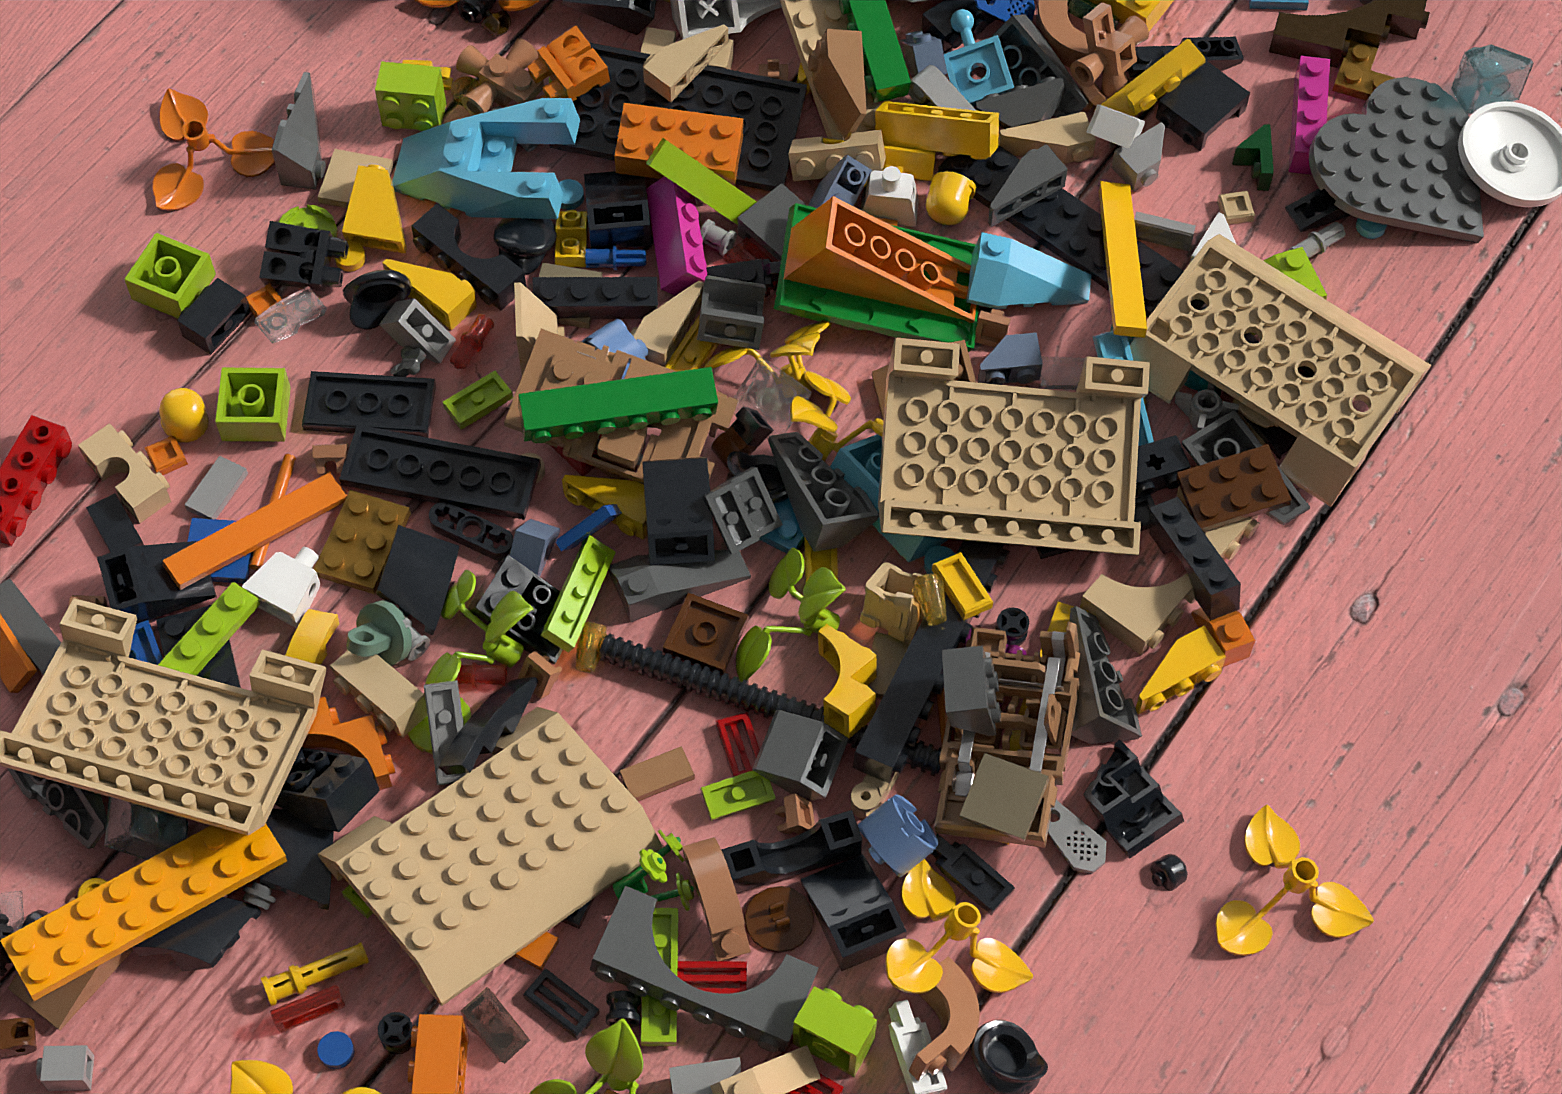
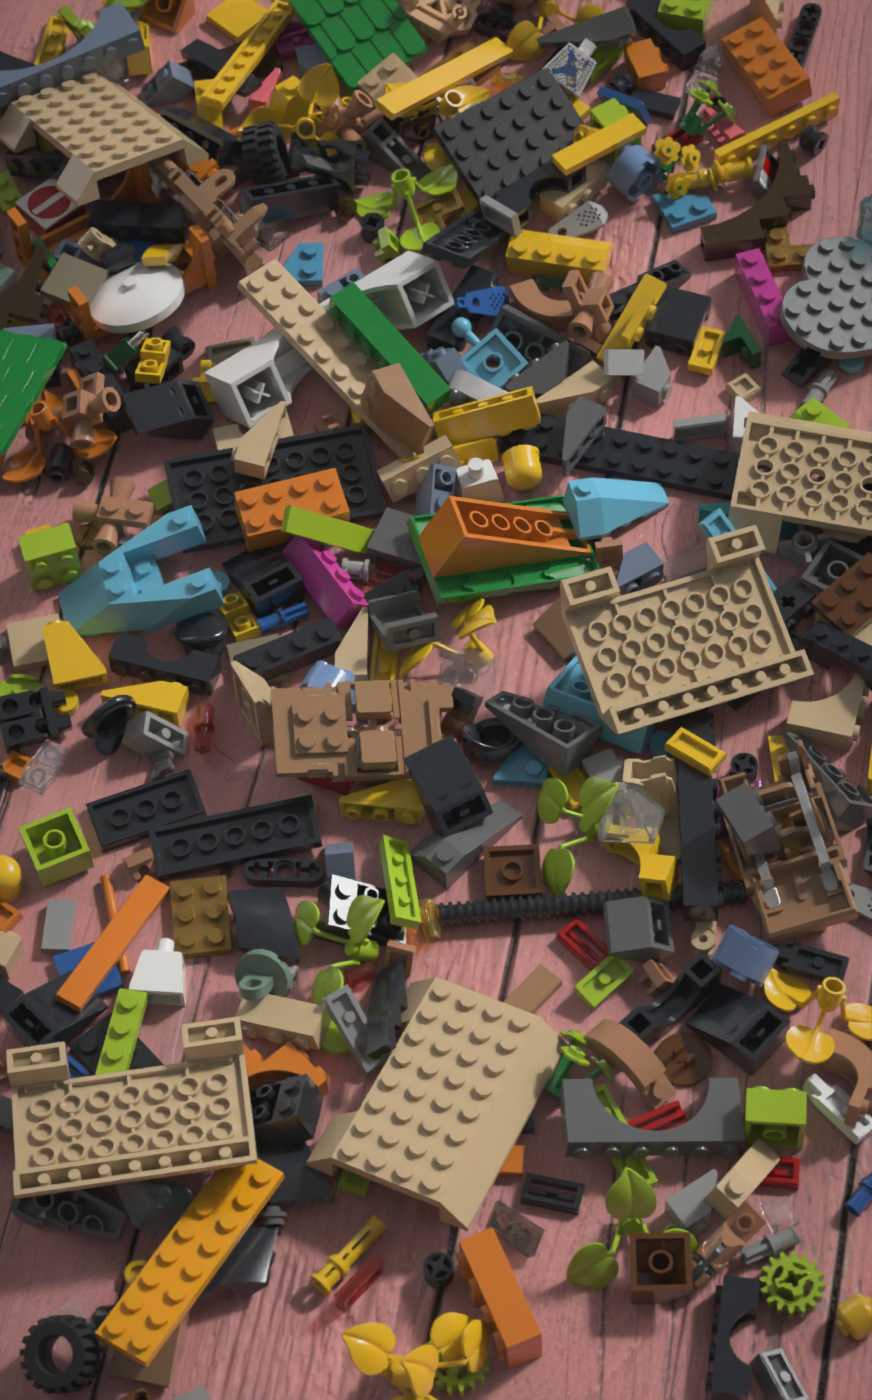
camera: 20 degrees left, 5 degrees down
(312, 636) = (203, 1002): yellow slope -> none
(335, 1050) = (397, 1305): blue tile -> none
(478, 400) = (234, 770): lime plate -> none
(569, 65) = (171, 482): orange hips -> none
(588, 527) = (379, 829): blue tile -> none
(617, 405) = (364, 721): green brick -> none
(623, 1006) = (603, 1174): black wheel -> none
(742, 510) = (496, 764): dark grey slope -> none
(825, 435) = (525, 686): yellow plant -> none
(853, 627) = (631, 817): none -> clear slope
(855, 567) = (603, 765): none -> light grey slope
(931, 598) = (678, 768): clear yellow cone -> none
(1004, 797) = (812, 891): dark tan tile -> none
(1122, 260) = (685, 459): yellow tile -> none
(1216, 150) = (706, 350): none -> yellow plate

